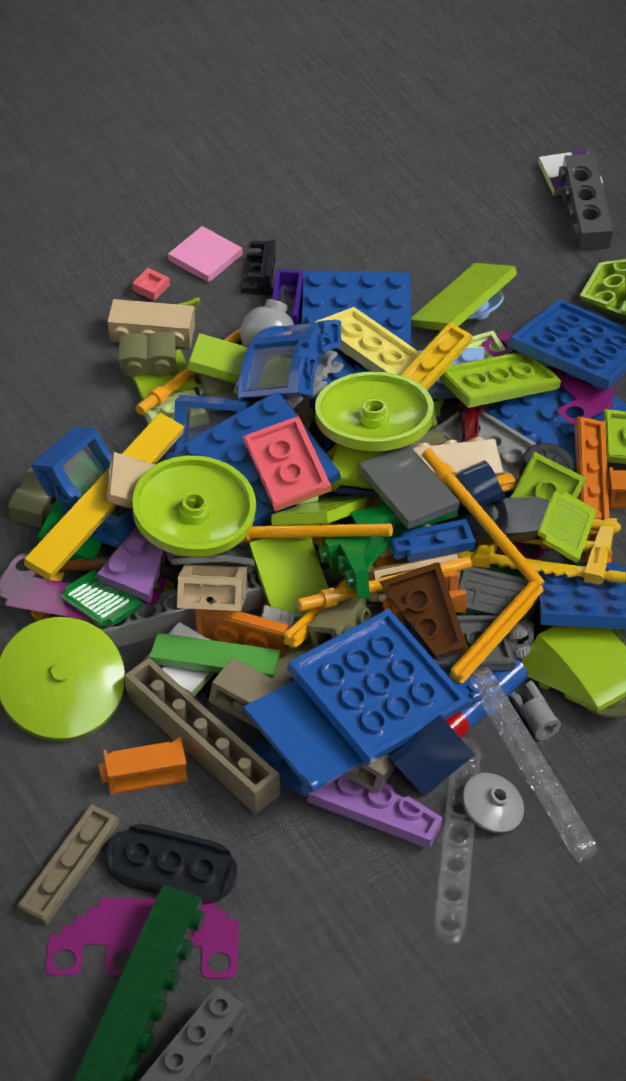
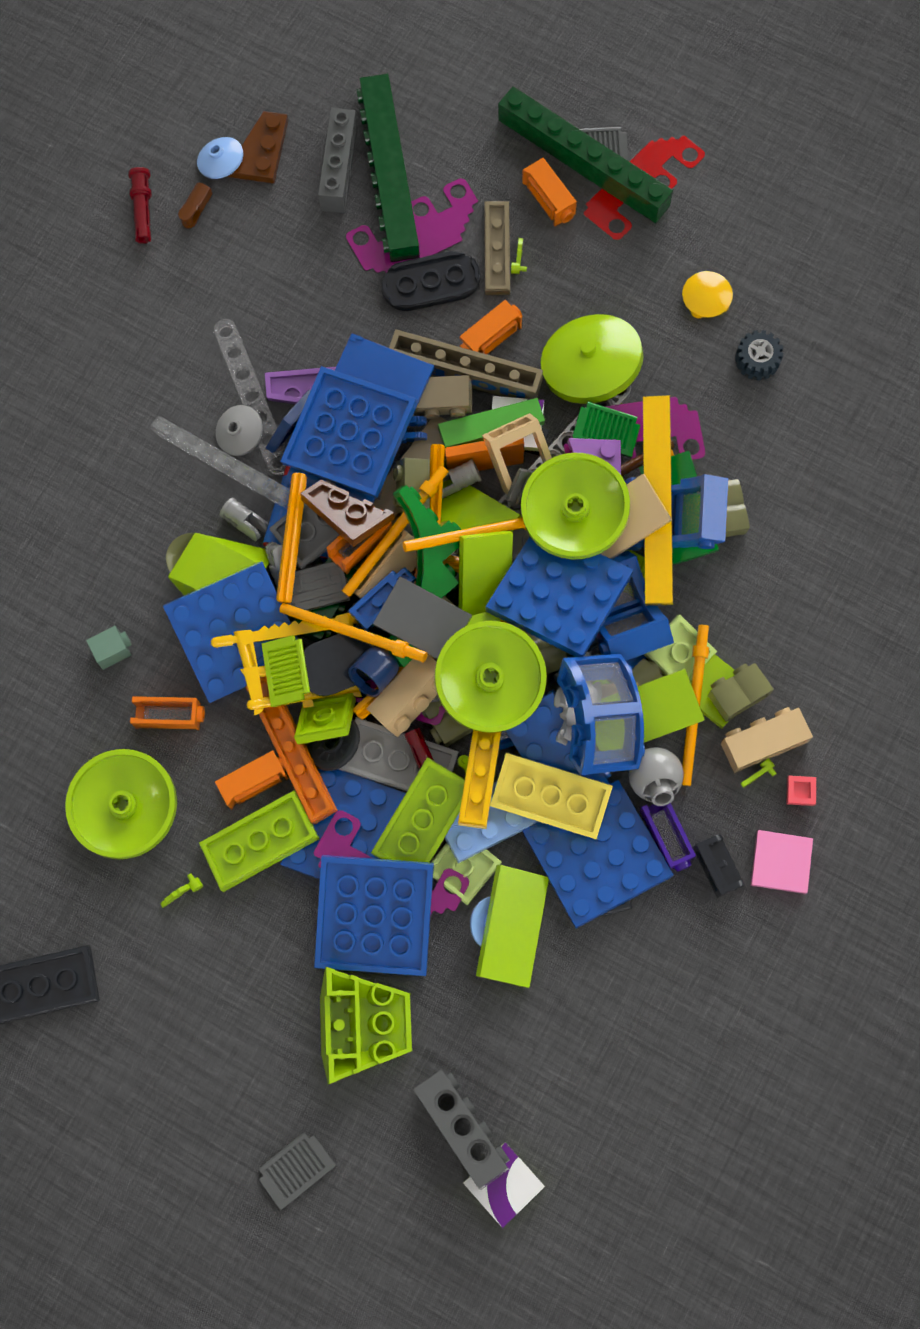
camera: 155 degrees right, 25 degrees up
(48, 841) = (516, 267): none -> lime piece
(287, 463) = (529, 585): coral tile -> none

